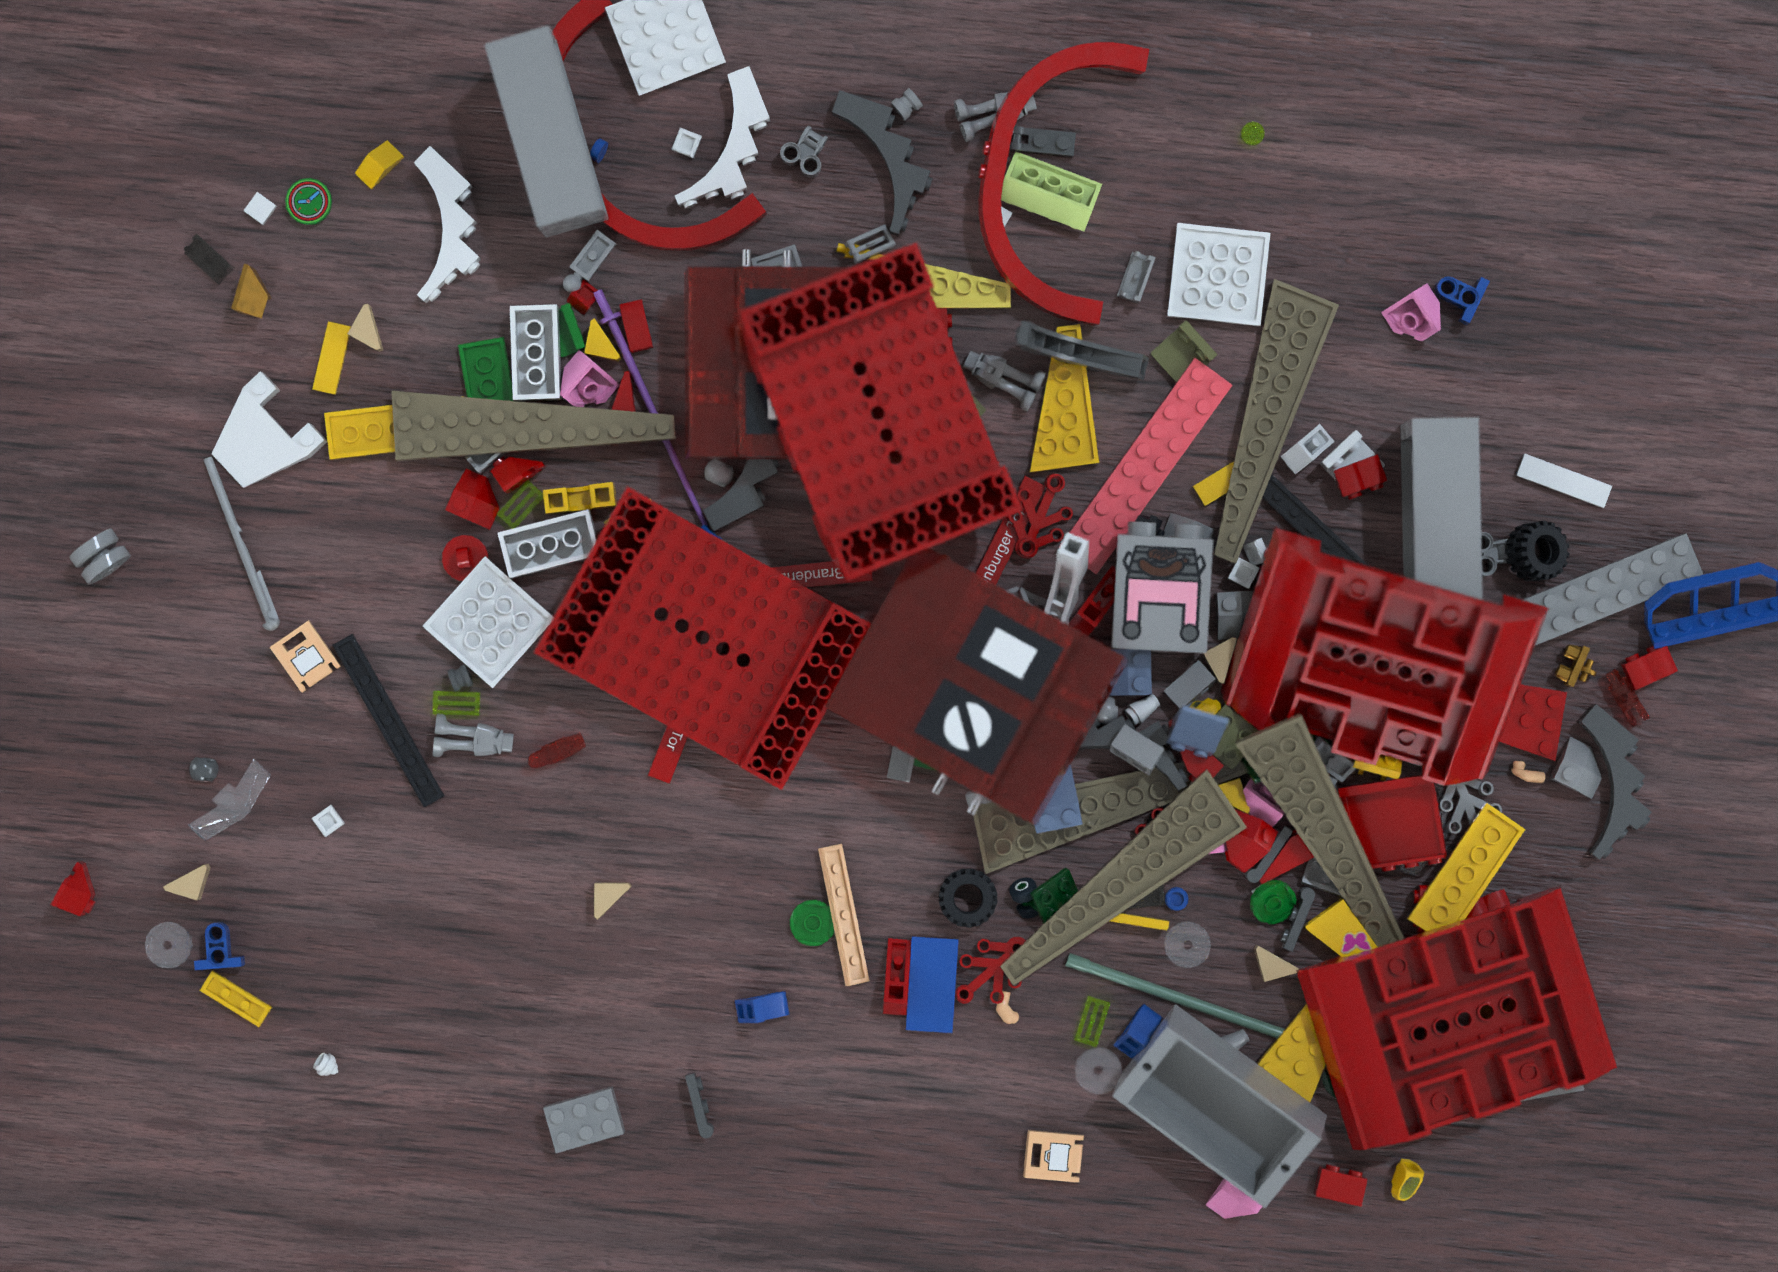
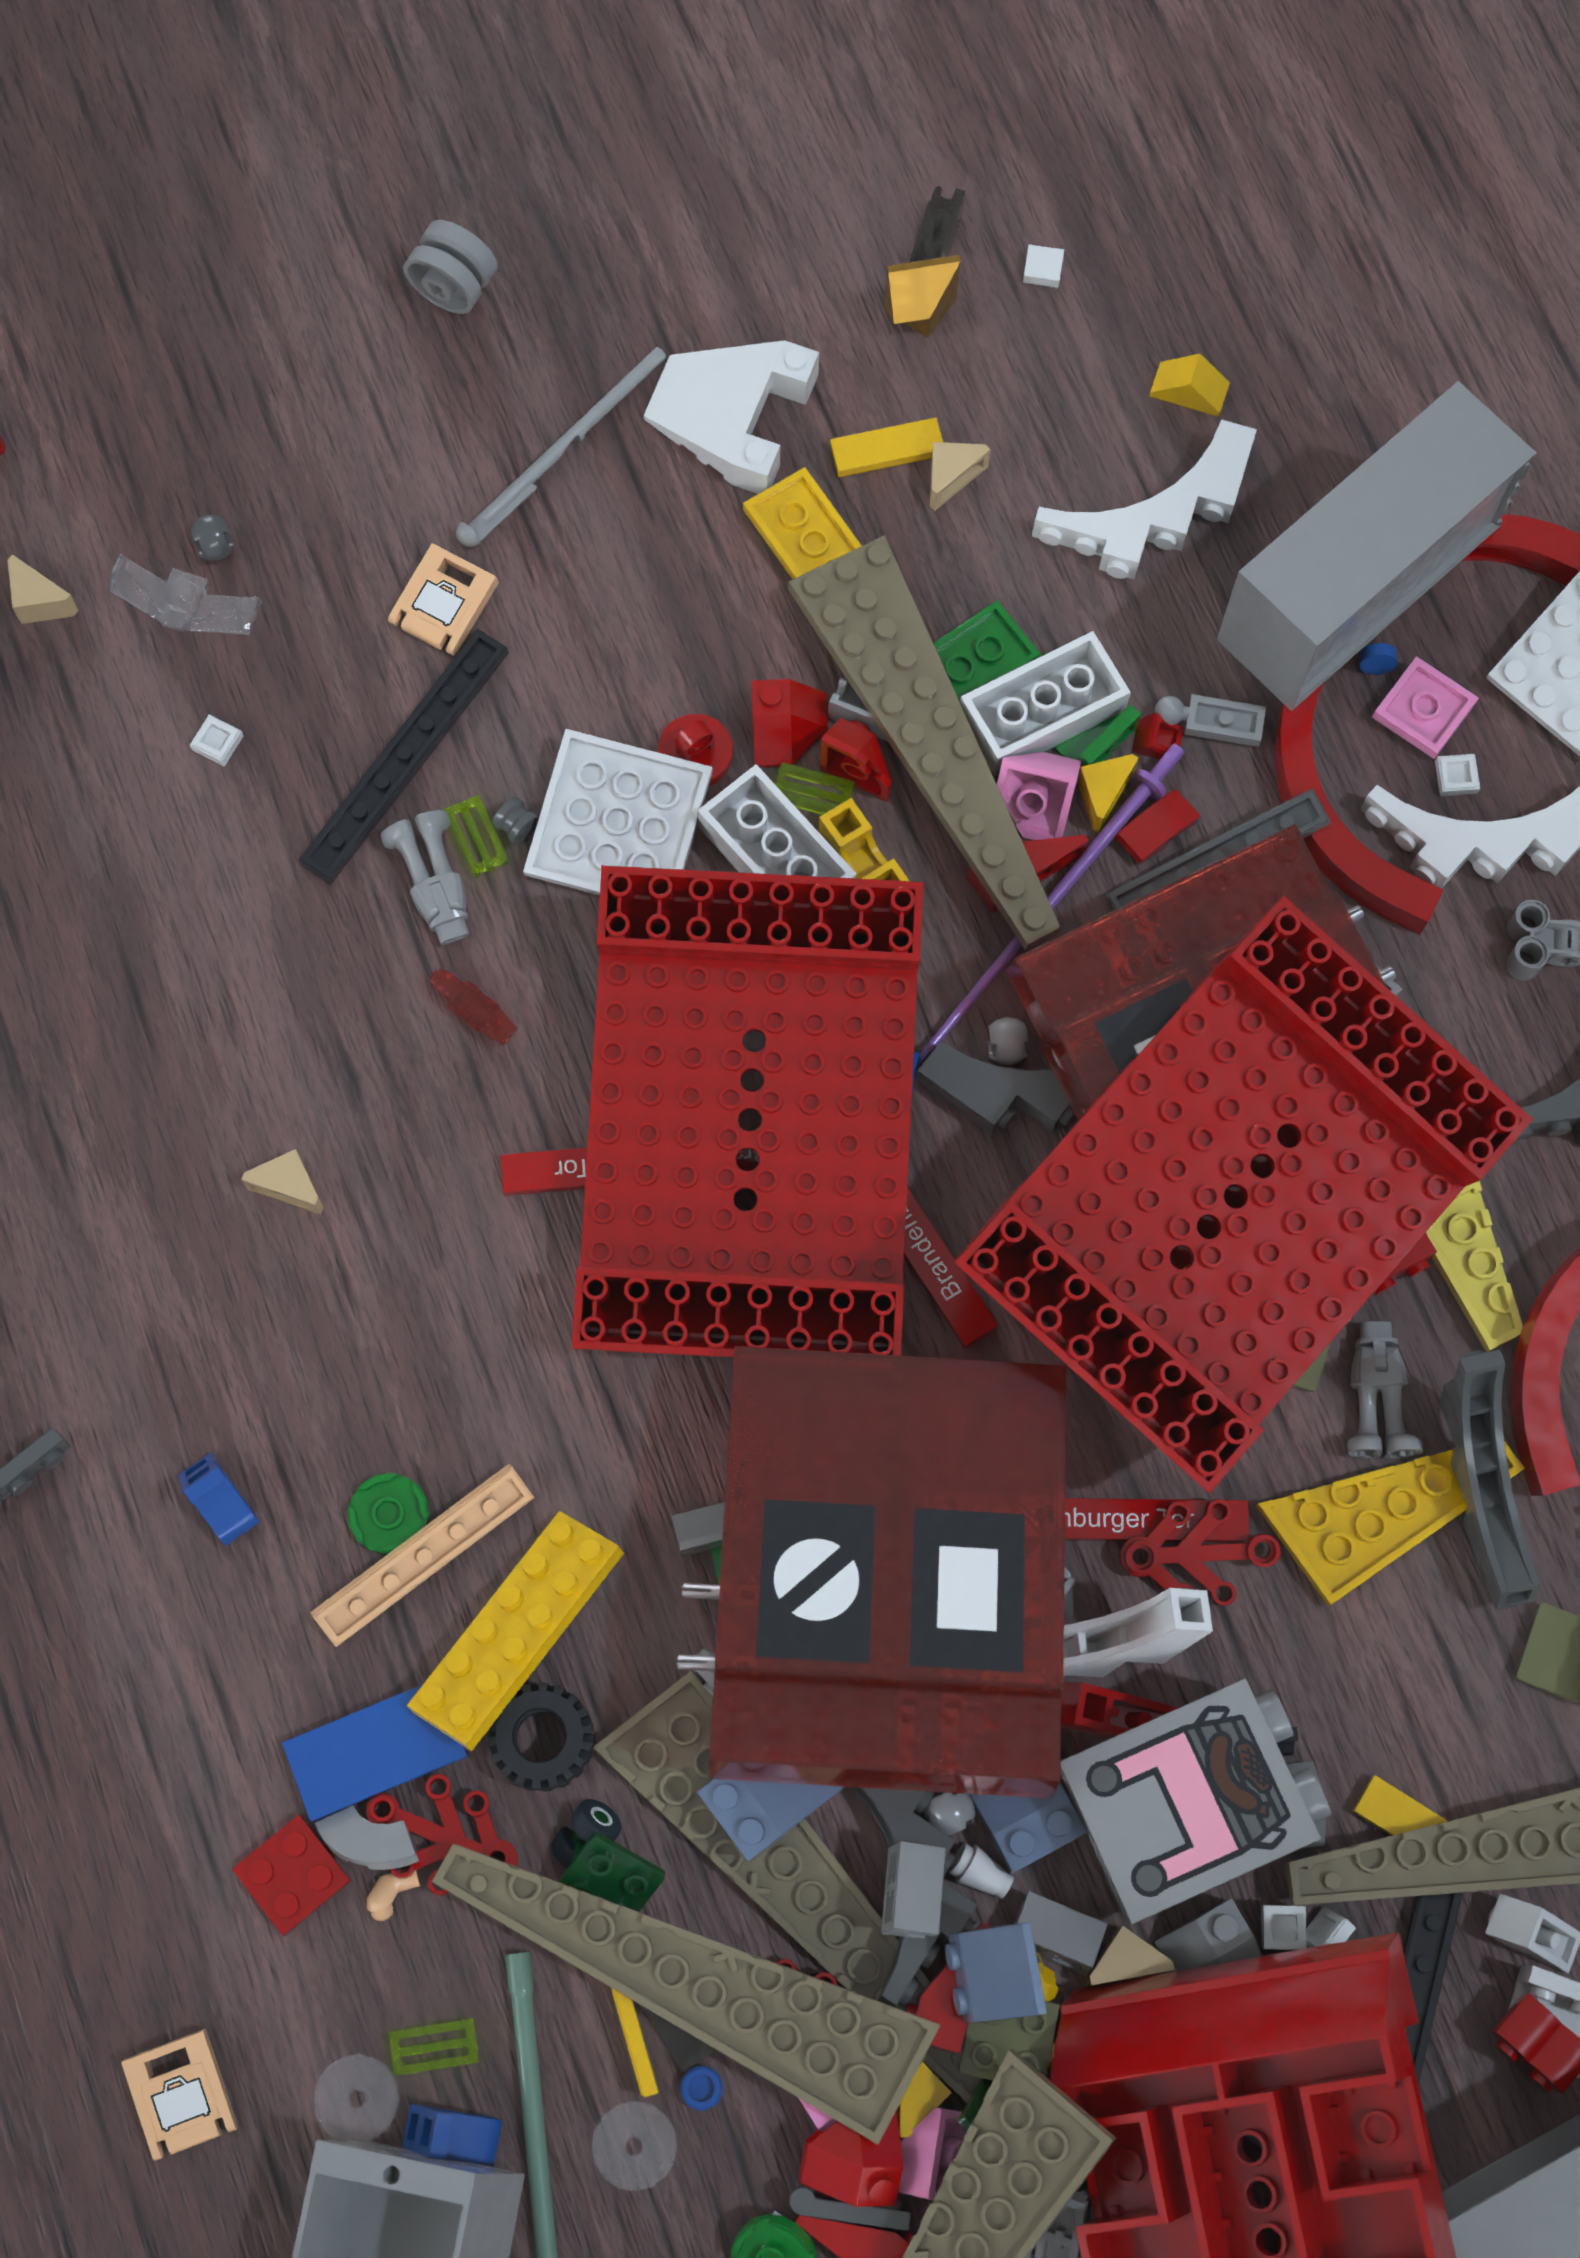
camera: 60 degrees right, 15 degrees down
(308, 201) = (1087, 321): tile -> none
(640, 140) = (1425, 707): none -> bright pink plate
(672, 305) = (1301, 810): none -> dark grey tile
(897, 976) = (359, 1686): red slope -> none
(907, 885) = (515, 1630): none -> yellow plate
(973, 1054) = (291, 1875): none -> red plate
(977, 1009) = (367, 1842): none -> light grey tile
(1149, 460) = (1381, 1684): coral plate -> none

